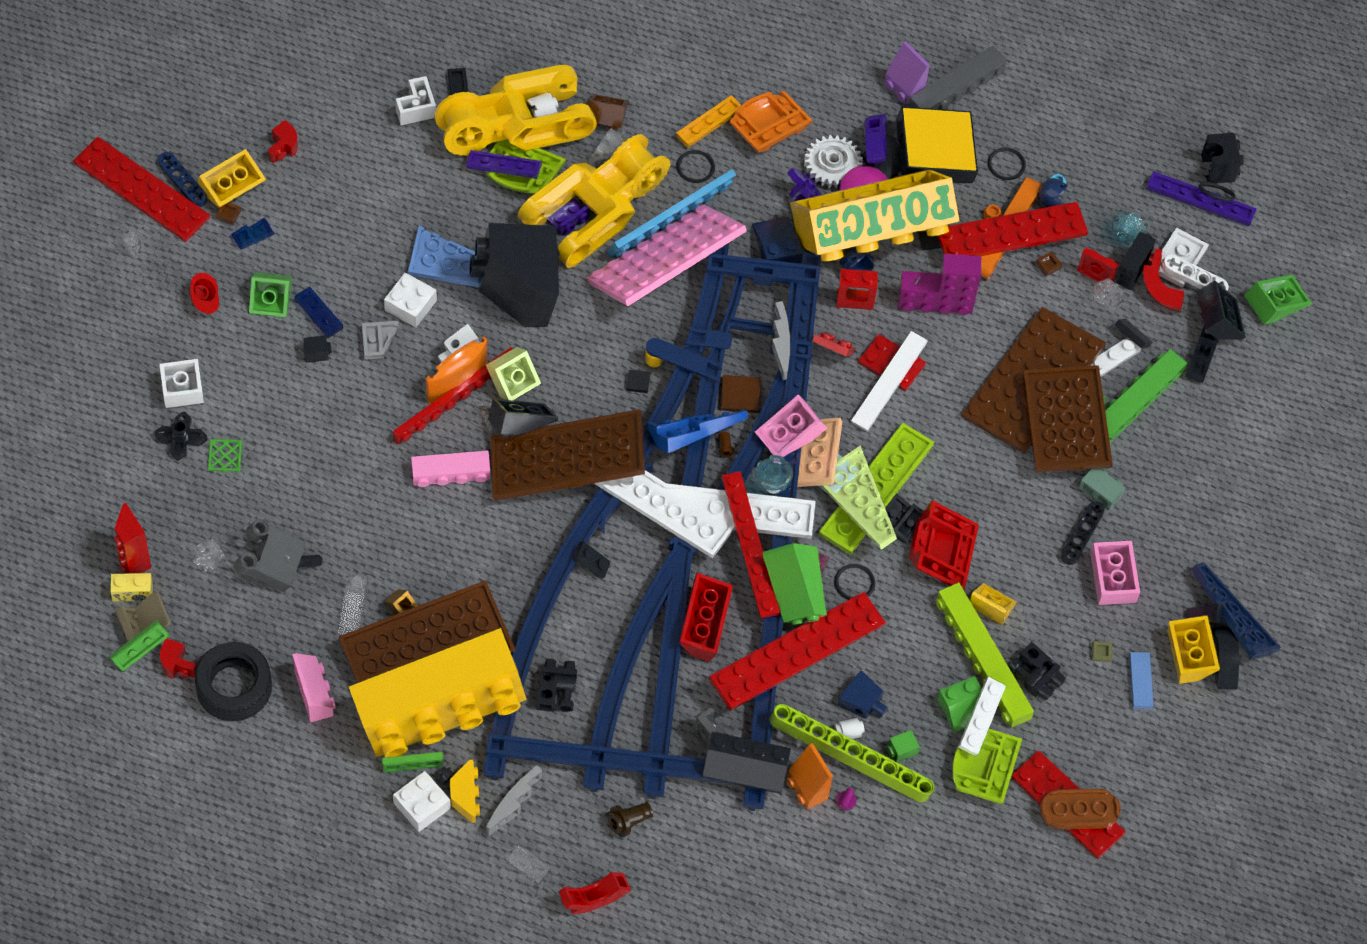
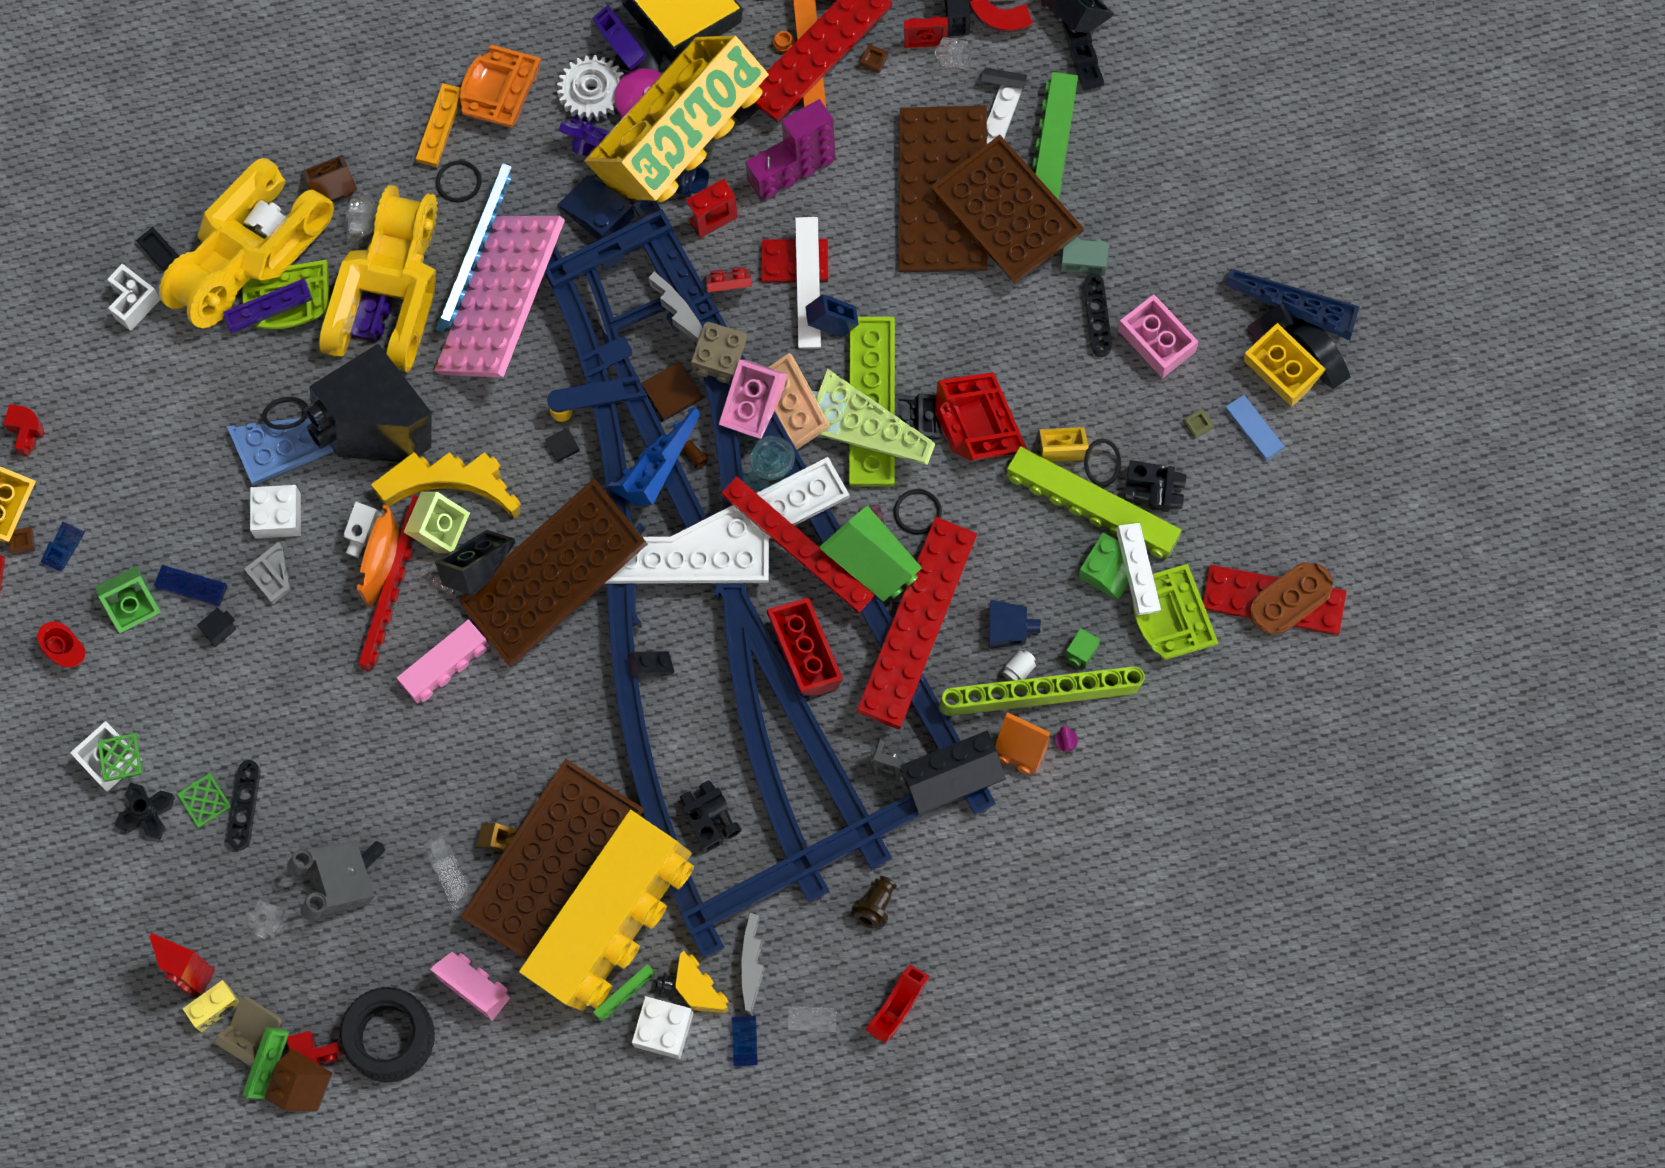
camera: 25 degrees left, 10 degrees up
(150, 672) = (298, 1083): none -> reddish brown slope
(177, 383) = (117, 739): none -> bright green window
(251, 476) = (244, 805): none -> black beam
(457, 248) = (284, 427): none -> black tyre
(472, 848) = (744, 1040): none -> clear blue slope
(546, 349) = (417, 476): none -> yellow arch
(788, 381) = (718, 352): none -> dark tan bracket
(888, 411) = (831, 315): none -> dark blue brick
(1026, 634) = (1086, 460): none -> black tyre

